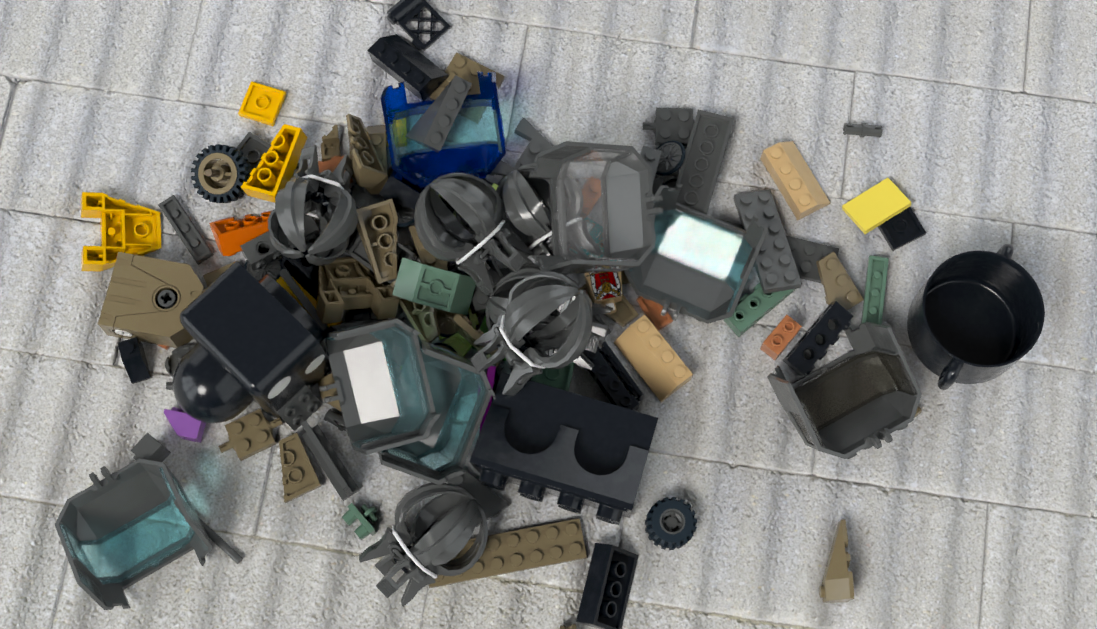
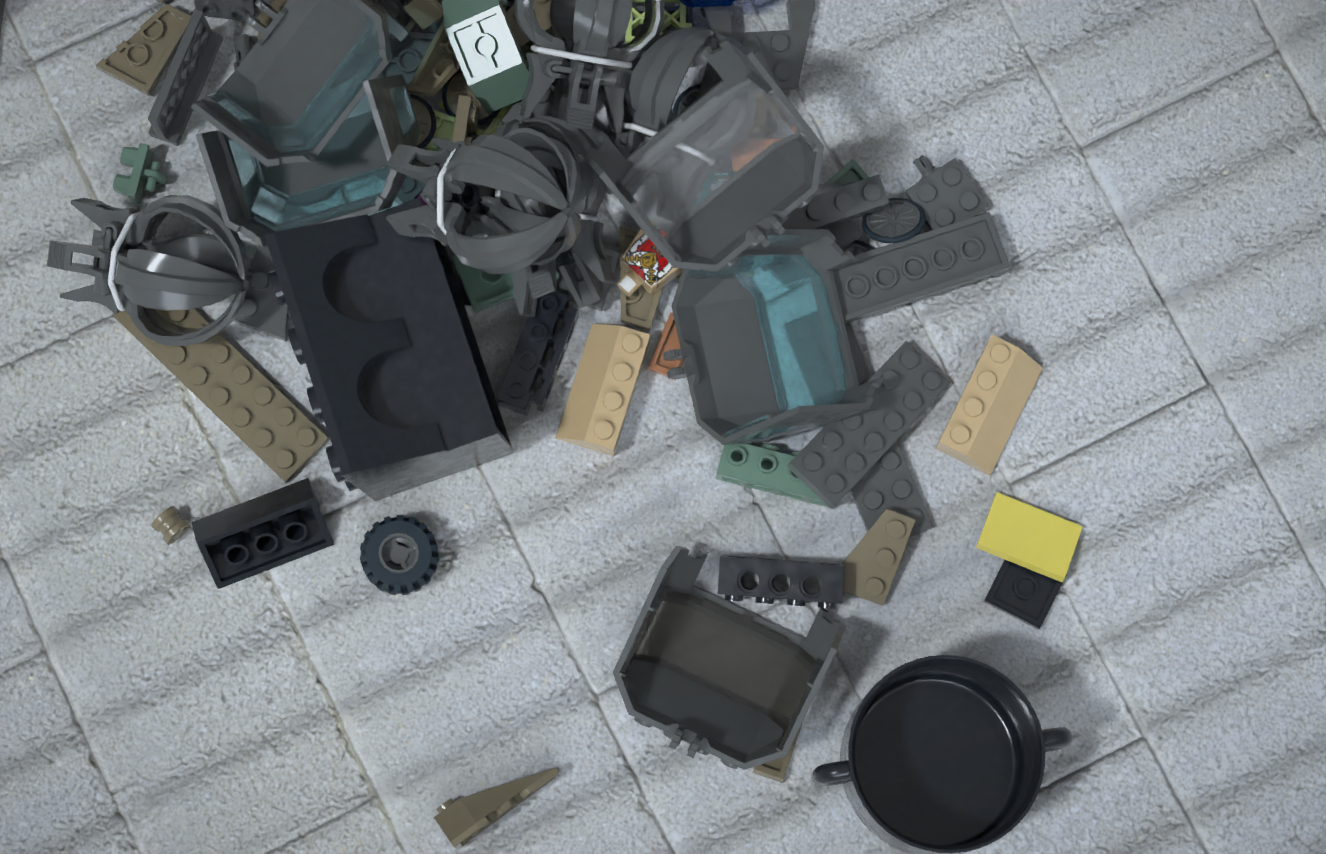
camera: 50 degrees right, 5 degrees up
(780, 337) = (750, 531): nougat brick -> none
(862, 130) = (1126, 448): dark grey pin -> none
(874, 290) = (902, 614): sand green plate -> none

